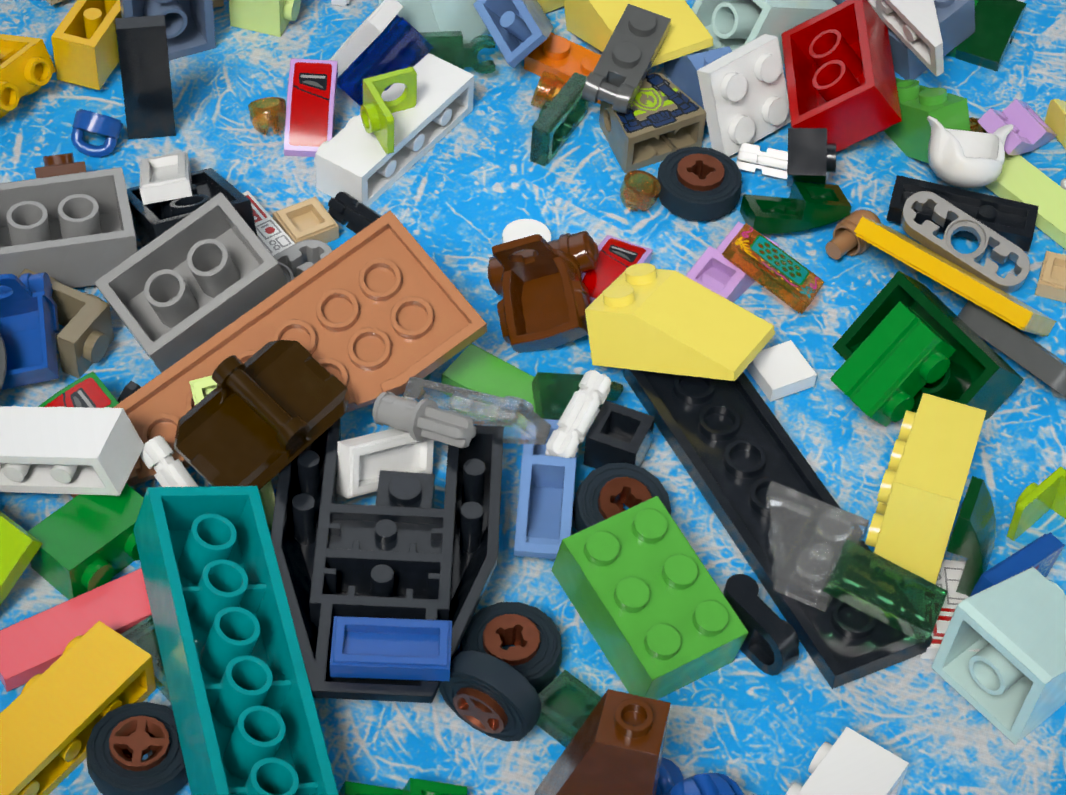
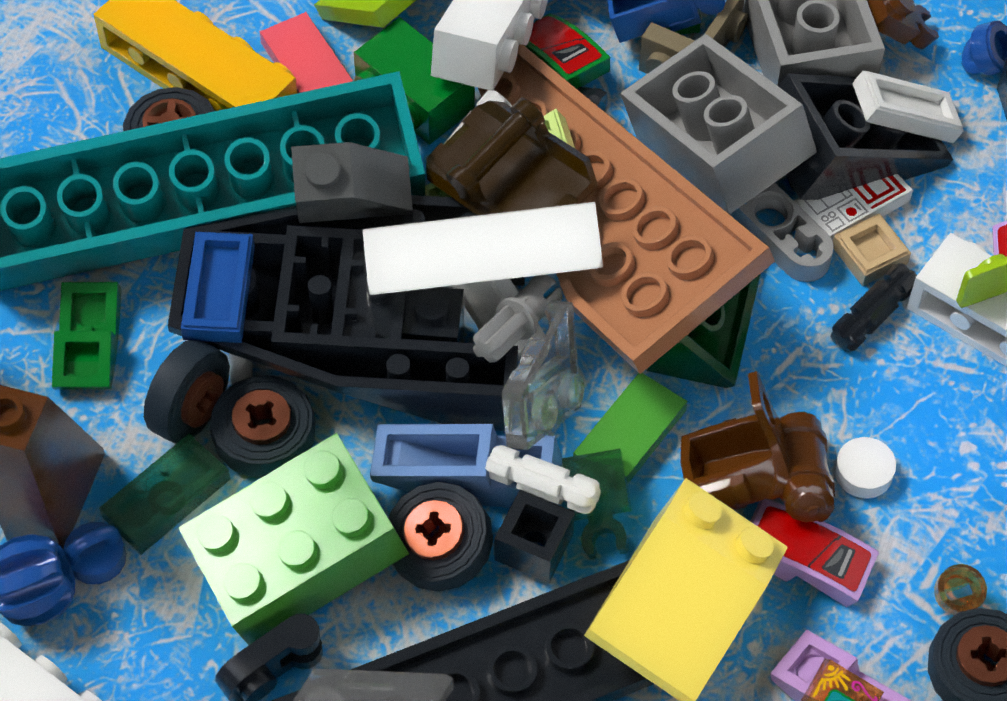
camera: 95 degrees right, 10 degrees up
(283, 540) = (349, 182): none -> dark grey slope
(369, 428) = (482, 248): none -> white slope

